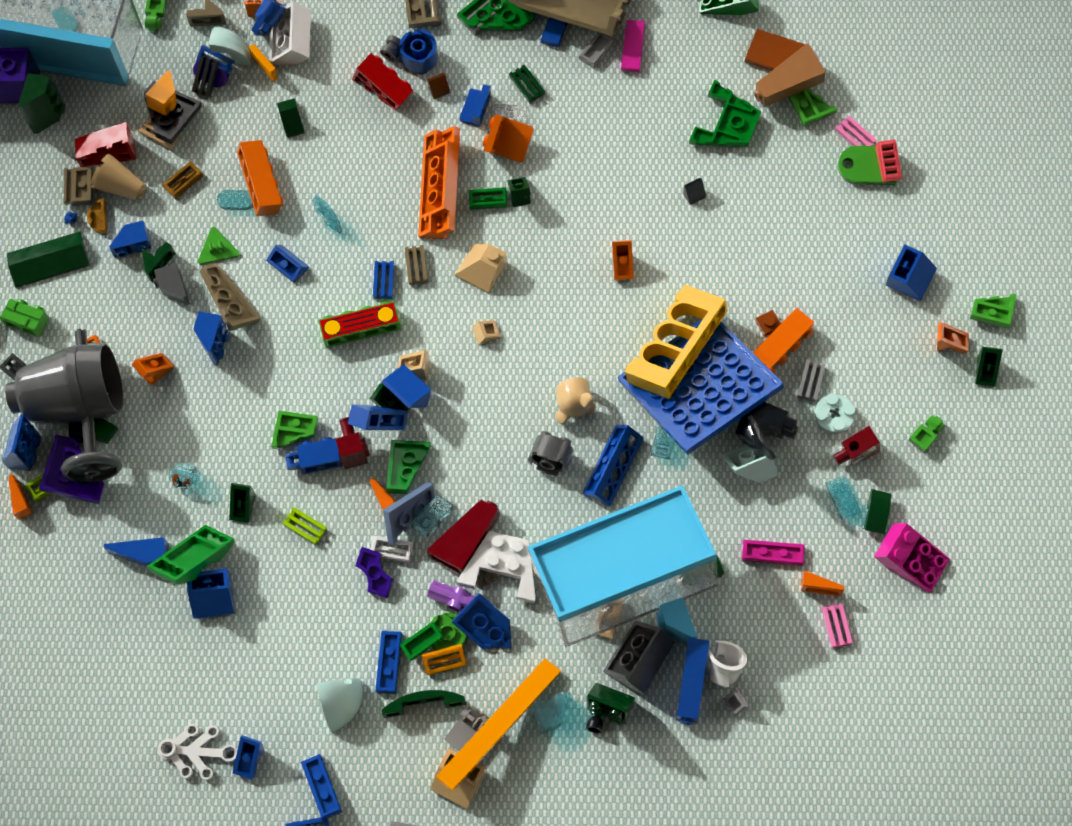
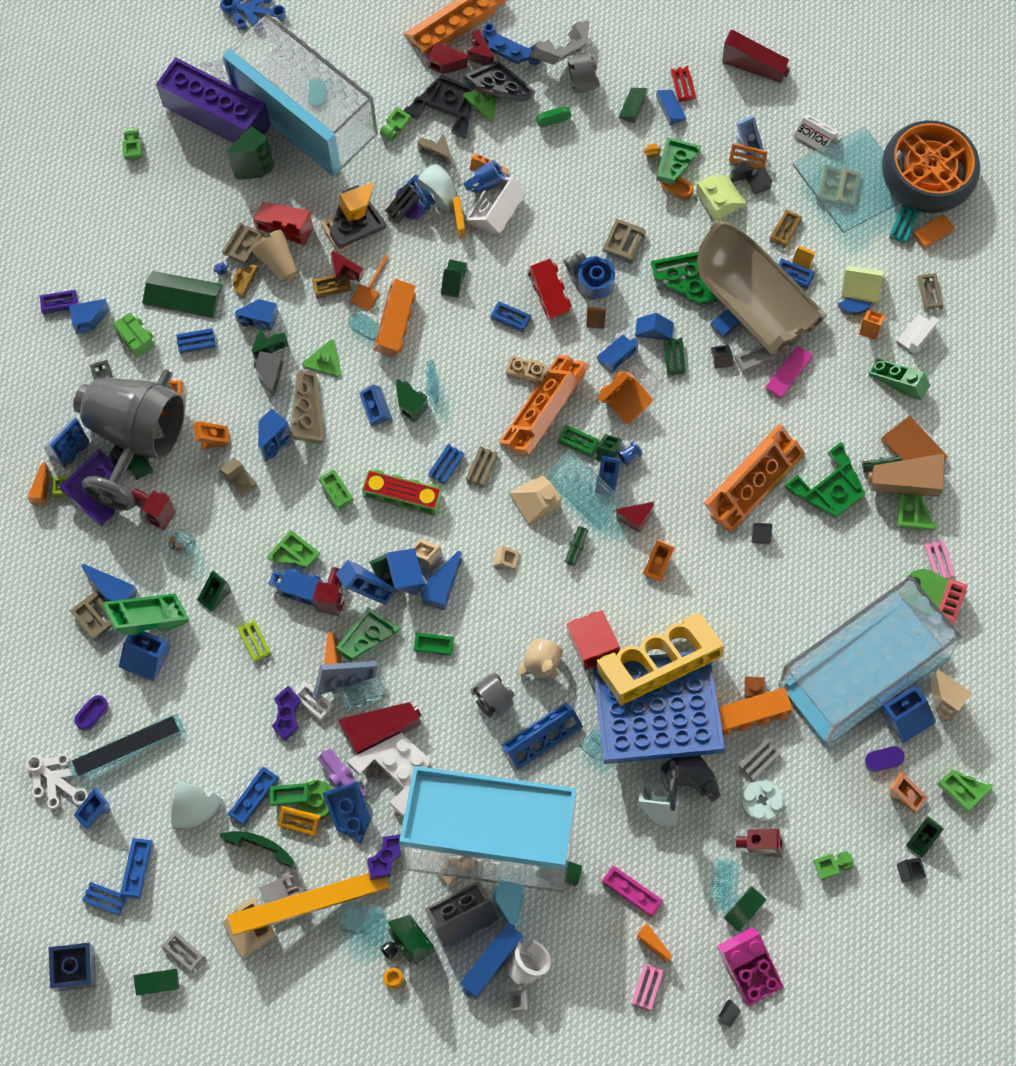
camera: 30 degrees right, 0 degrees up
(85, 290) = (195, 337): none -> blue tile
(139, 590) = (88, 616): none -> dark tan plate
(142, 456) = (155, 507): none -> dark red brick
(183, 156) = (344, 266): none -> dark red slope
(192, 673) = (91, 712): none -> dark purple tile
(200, 391) = (238, 476): none -> dark tan slope
(219, 174) = (365, 296): none -> orange piece
(244, 685) = (125, 747): none -> black tile
(297, 354) = (336, 489): none -> bright green plate
(317, 242) = (410, 402): none -> dark green slope
(362, 127) = (524, 323): none -> blue tile
(407, 161) = (527, 370): none -> tan slope
(443, 384) = (440, 585): none -> blue slope
(468, 439) = (433, 644): none -> green tile
(493, 68) = (654, 327): none -> blue slope
(520, 234) = (584, 488): none -> clear light blue tile
(533, 212) = (610, 471): none -> blue slope
(540, 184) = (636, 451): none -> blue bush
(542, 287) = (576, 545): none -> dark green pin
(542, 636) = (380, 864): none -> dark purple tile
(567, 62) = (722, 356): none -> black slope
(577, 235) = (635, 515): none -> dark red slope
(607, 357) = (592, 638): none -> brick
(613, 747) = (393, 978): none -> light orange plate
(660, 149) = (754, 478): none -> orange slope
(750, 86) = (867, 466): none -> dark green pin
(855, 244) = (869, 660): none -> clear piece
(913, 322) = (884, 759): none -> dark purple tile
(918, 607) = (728, 1013): none -> black slope
(934, 239) = (948, 695): none -> tan slope
(992, 401) = (911, 870): none -> black slope

